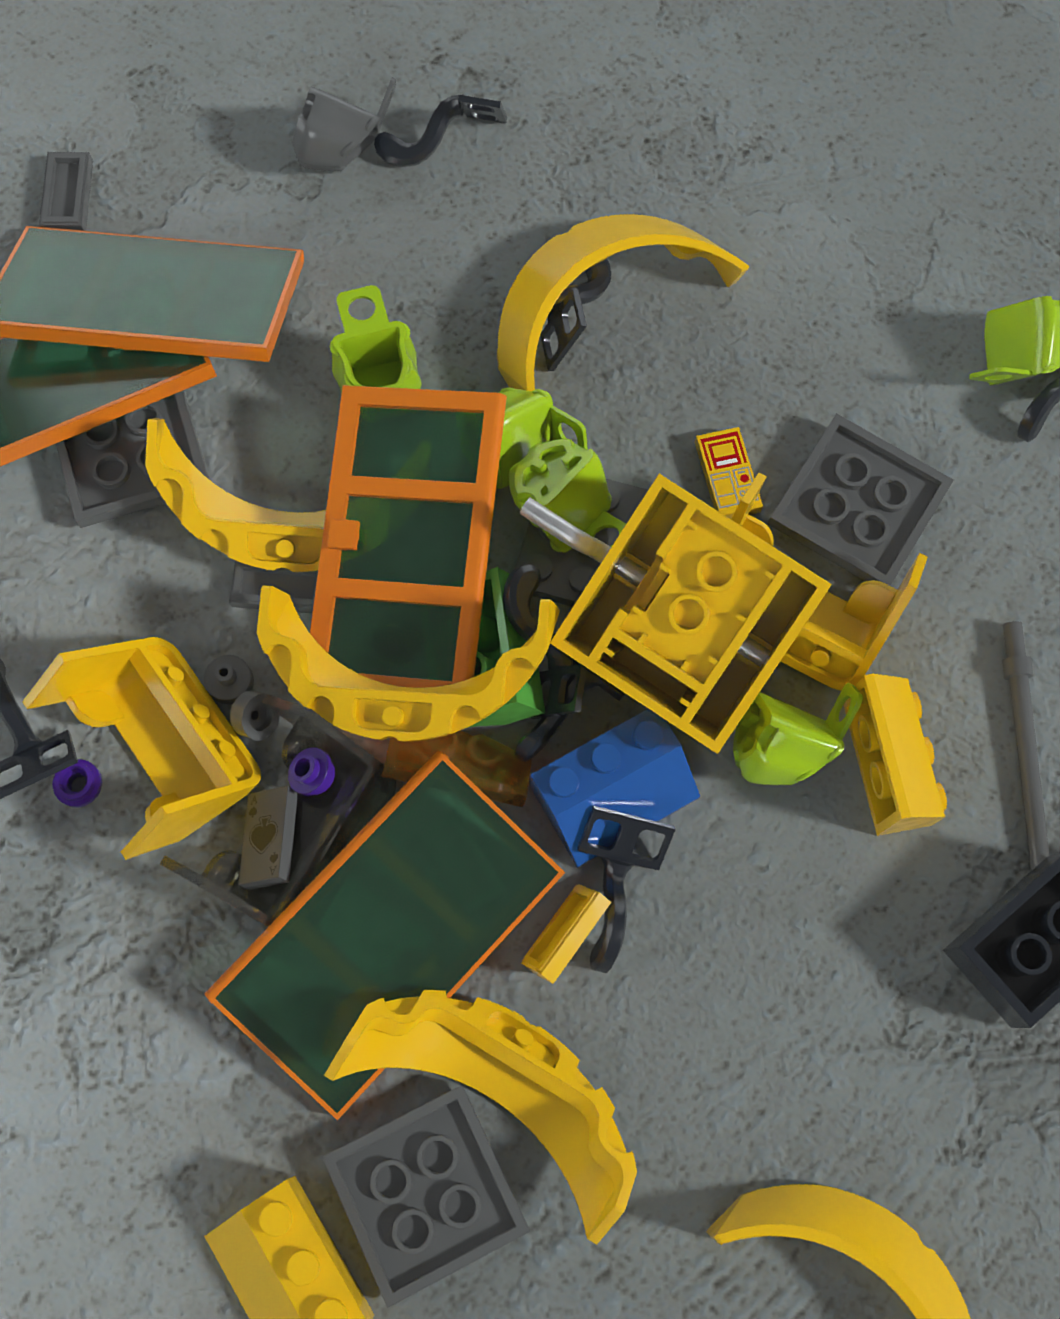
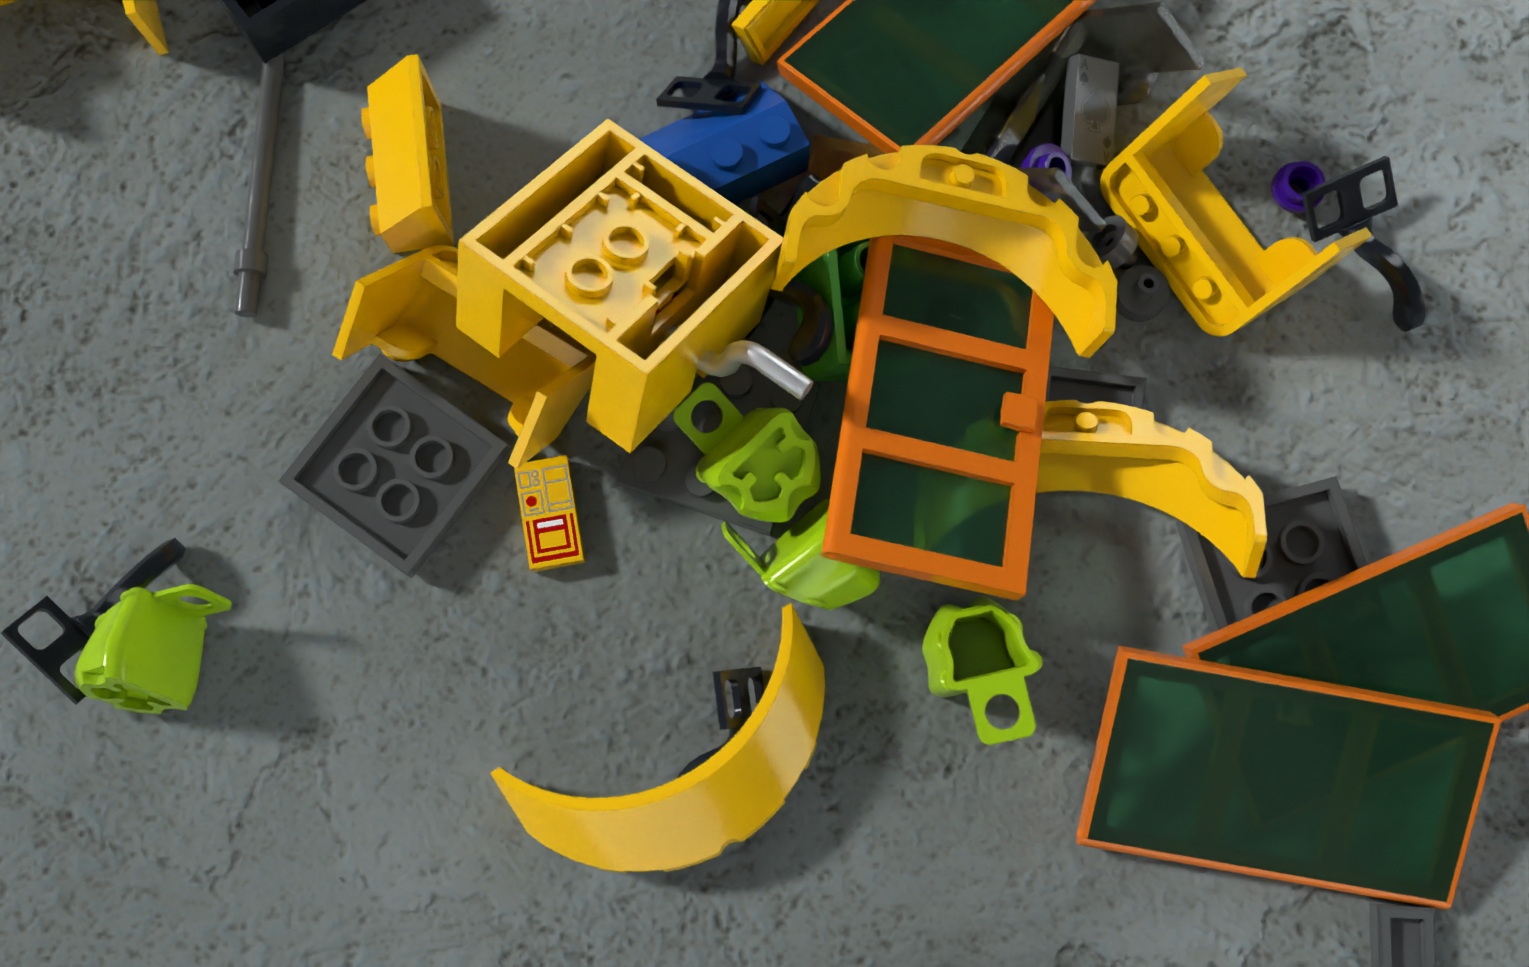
camera: 175 degrees left, 5 degrees up
(787, 744) = (498, 170): lime piece -> none

